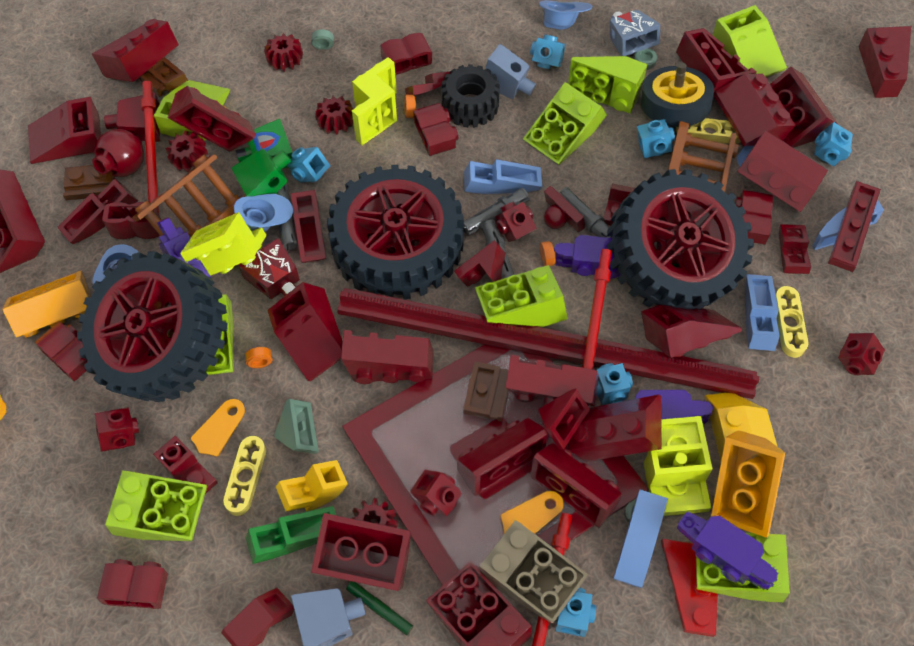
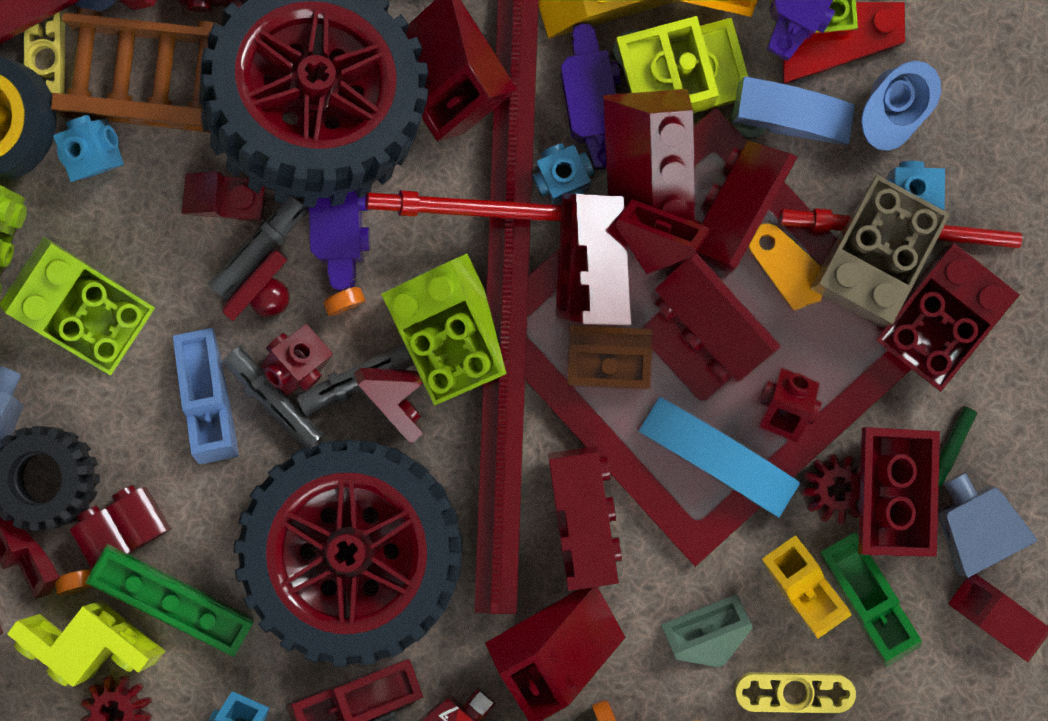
camera: 95 degrees left, 25 degrees up
(391, 140) = (169, 600): none -> green tile
(406, 449) = (719, 456): none -> dark azure slope
(638, 610) = (900, 104): none -> medium blue piece

